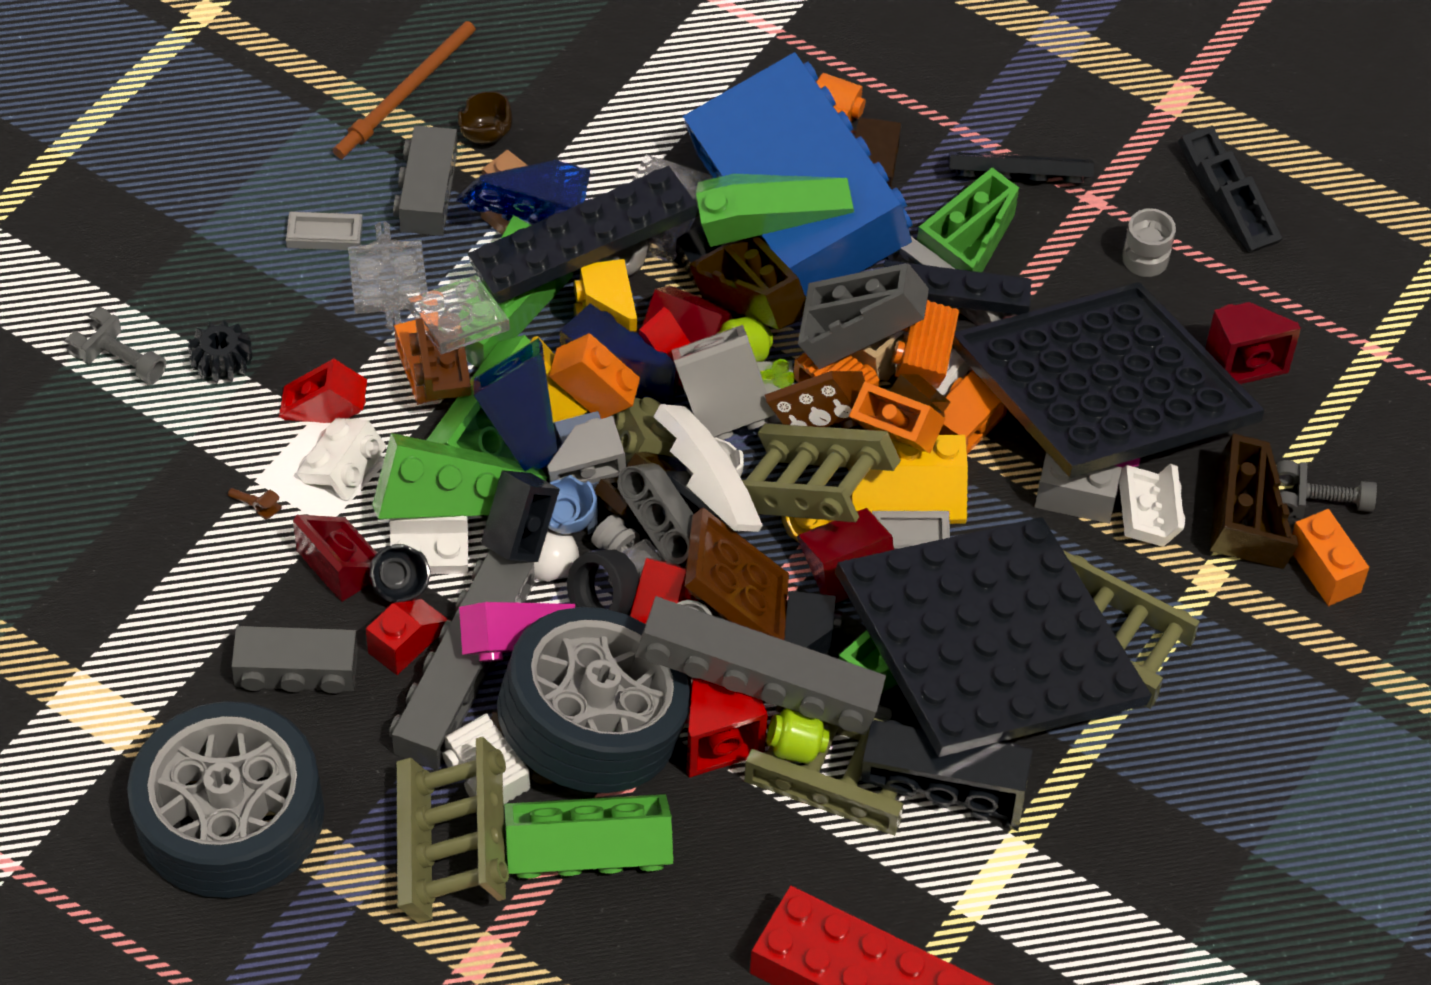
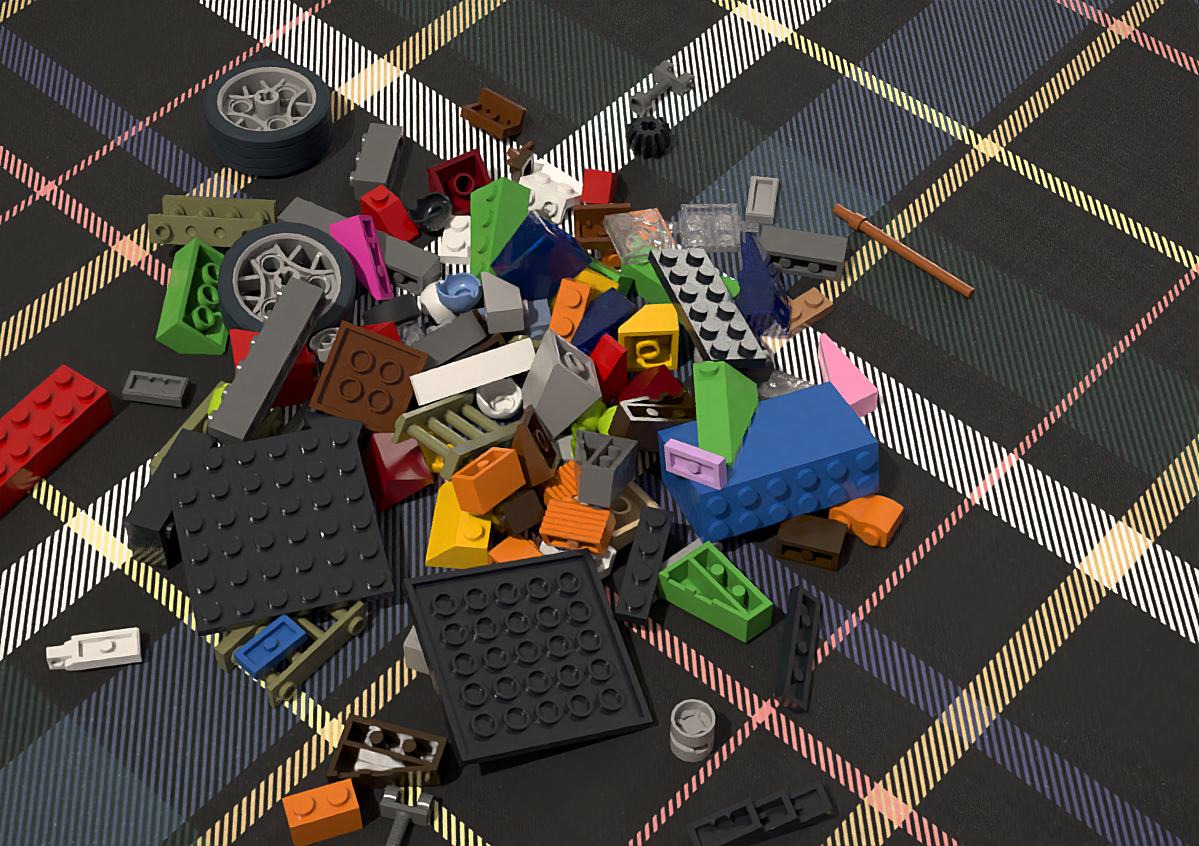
camera: 100 degrees right, 5 degrees down
(188, 531) = (495, 114): none -> reddish brown bracket
(295, 487) = (522, 165): none -> dark brown plate
(485, 117) = (861, 289): dark brown hair -> none
(520, 516) = (449, 257): black brick -> none
(648, 129) = (846, 377): none -> bright pink slope
(749, 855) = (156, 388): none -> dark grey plate
(869, 195) = (695, 464): none -> lavender plate
(914, 527) = (418, 520): light grey tile -> none
(1145, 629) = (270, 646): none -> blue plate
(1151, 504) = (404, 686): white bracket -> none
(1169, 828) = (96, 650): none -> white hinge
(1252, 341) = (558, 779): dark red slope -> none

